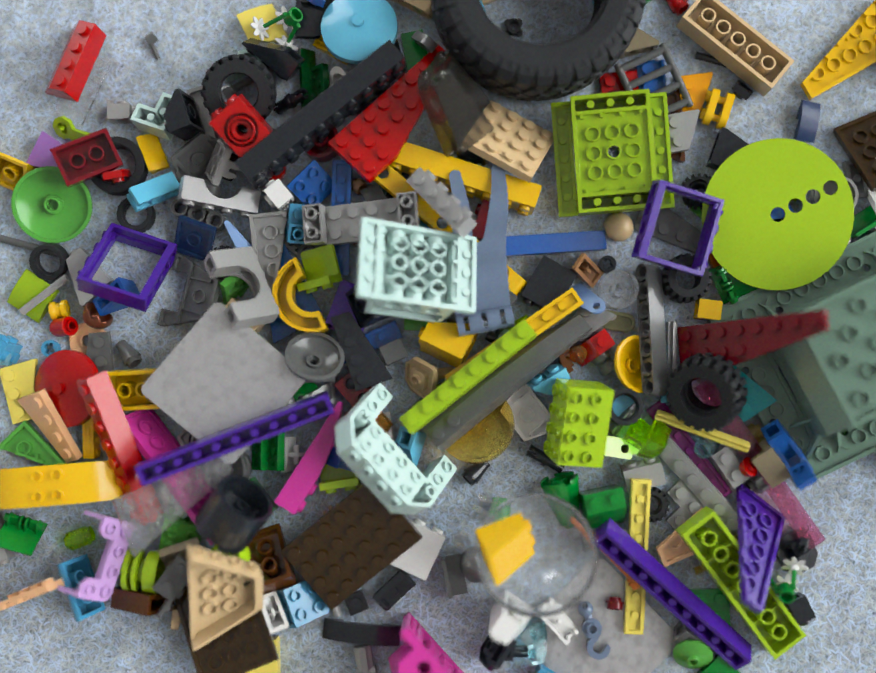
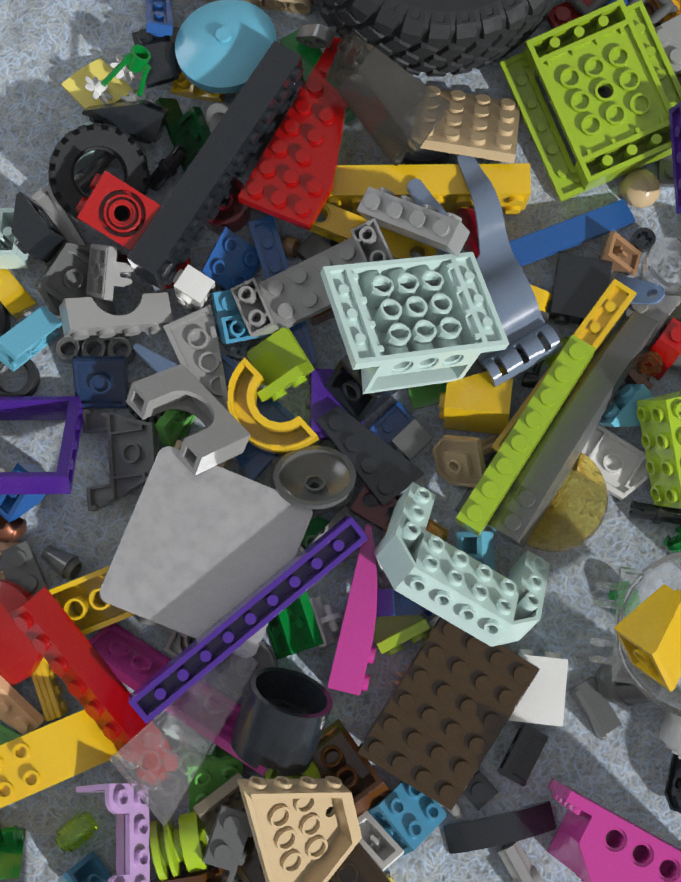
camera: 20 degrees left, 5 degrees down
(475, 472) = (573, 562): black cone -> none

